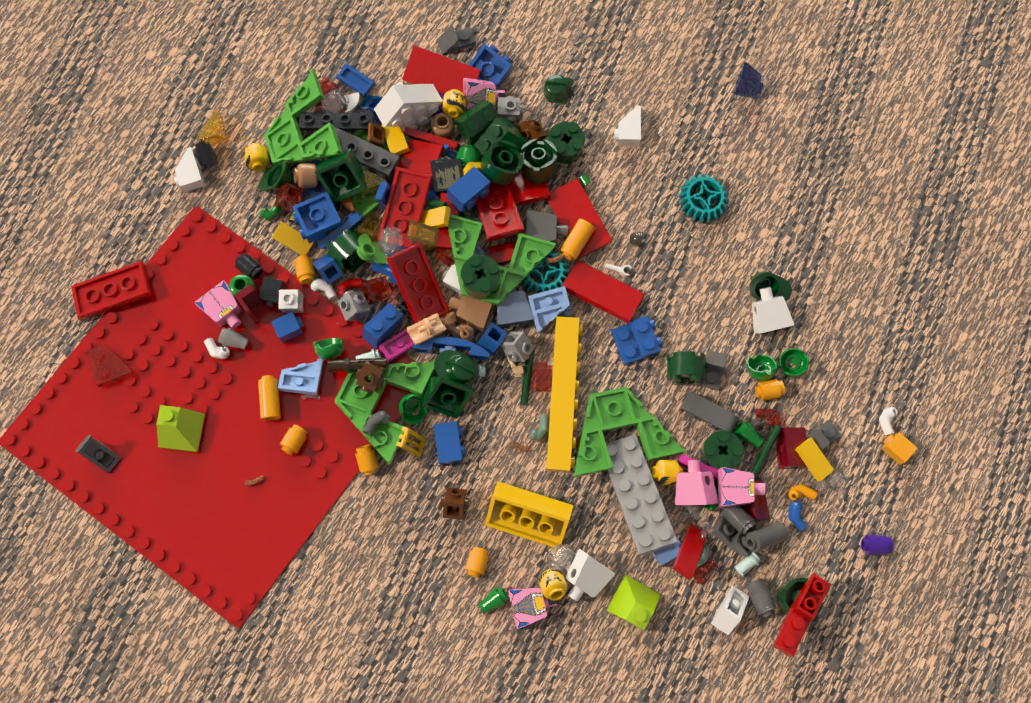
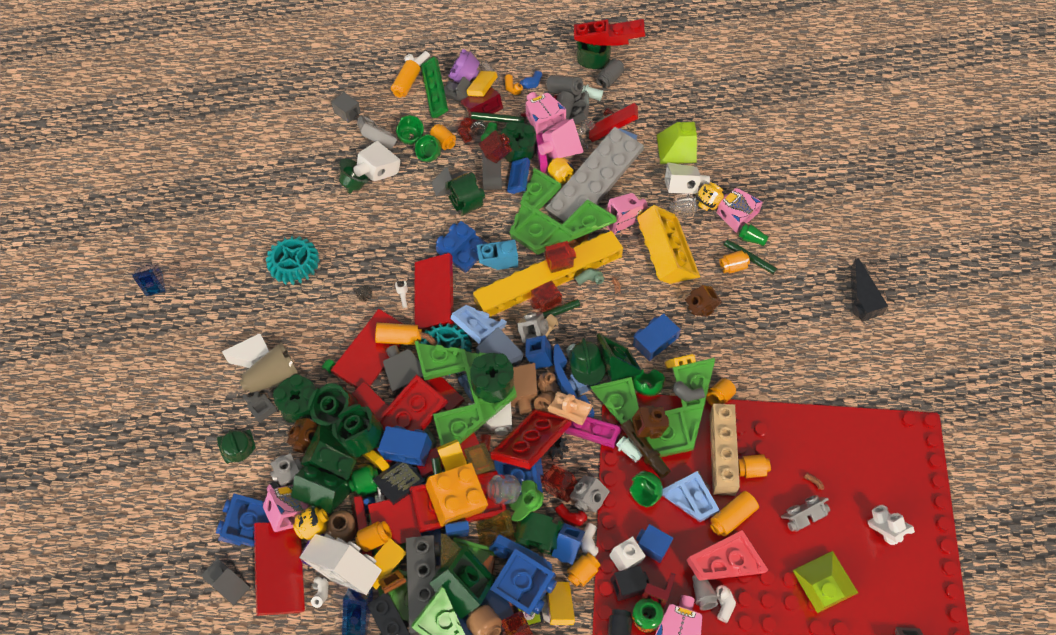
camera: 120 degrees left, 15 degrees down
(181, 504) = (890, 525): none -> white hips
(236, 461) = (798, 514): none -> light grey hinge
(241, 371) = (727, 558): none -> coral wing
(320, 425) = (724, 450): none -> tan brick
(371, 651) = (866, 298): none -> black slope
(382, 325) = (591, 453): blue brick -> none
(403, 200) = (456, 494): none -> light orange brick
(415, 136) = (373, 536): none -> light orange brick
(475, 583) = (753, 258): none -> dark green bar
(565, 403) = (560, 256): none -> clear red brick
(580, 116) = (259, 406): none -> dark grey plate
(584, 489) = (626, 210): none -> bright pink torso
(601, 135) = (269, 370): none -> dark tan cone
(606, 361) = (498, 254): none -> dark azure slope
(685, 432) = (518, 176): none -> blue tile
(718, 417) = (495, 146): none -> clear red brick
(730, 610) = (635, 85): white slope -> none
(806, 326) = (375, 133): none -> light grey brick
(839, 416) = (434, 87): none -> green tile
(844, 453) = (465, 65): none -> medium lavender cone
(857, 321) = (346, 107): none -> dark grey brick
(864, 394) = (405, 78): none -> light orange brick
(877, 545) = (519, 27): dark purple brick -> none
(898, 448) = (435, 42): light orange brick -> none

